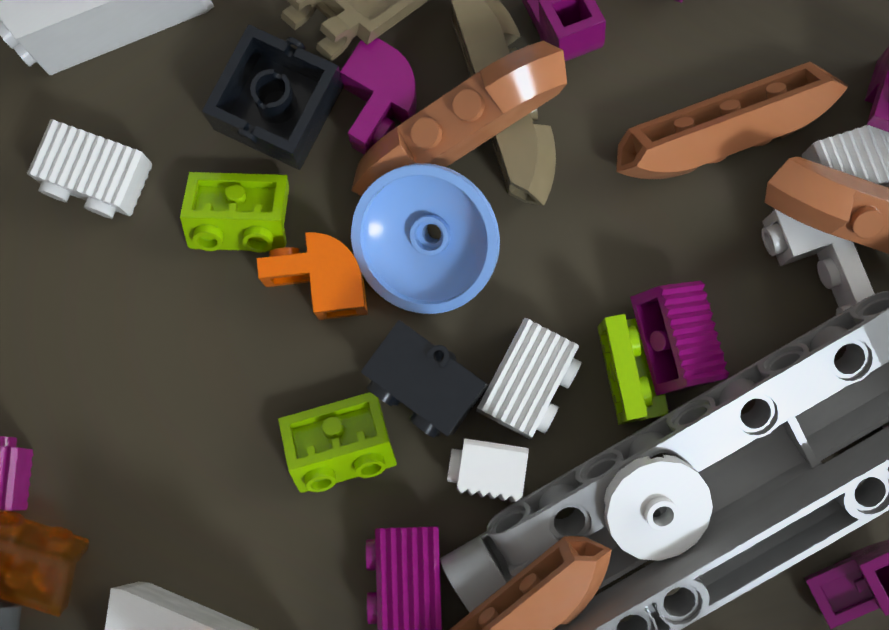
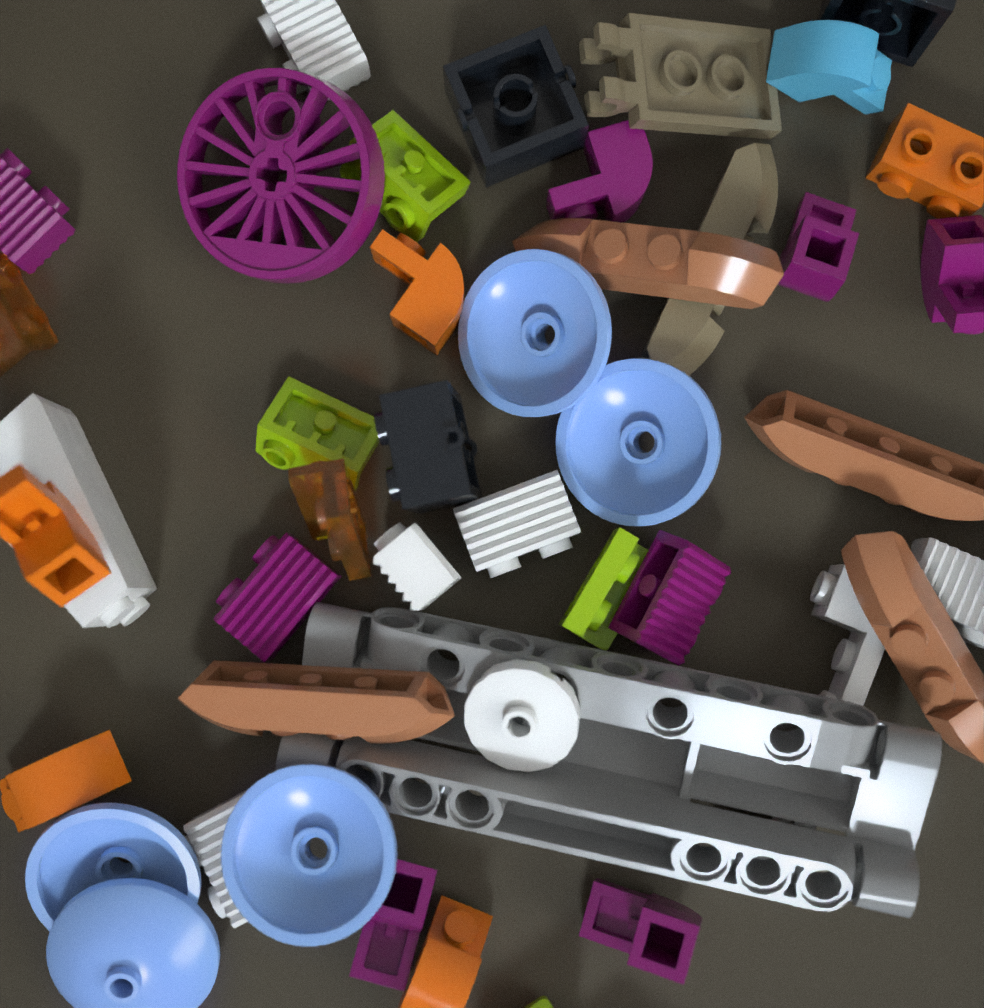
camera: 35 degrees right, 5 degrees up
(136, 270) = (272, 203): none -> magenta piece
(394, 485) = (333, 513): none -> clear orange bracket
(556, 286) = (602, 450): none -> light blue dish

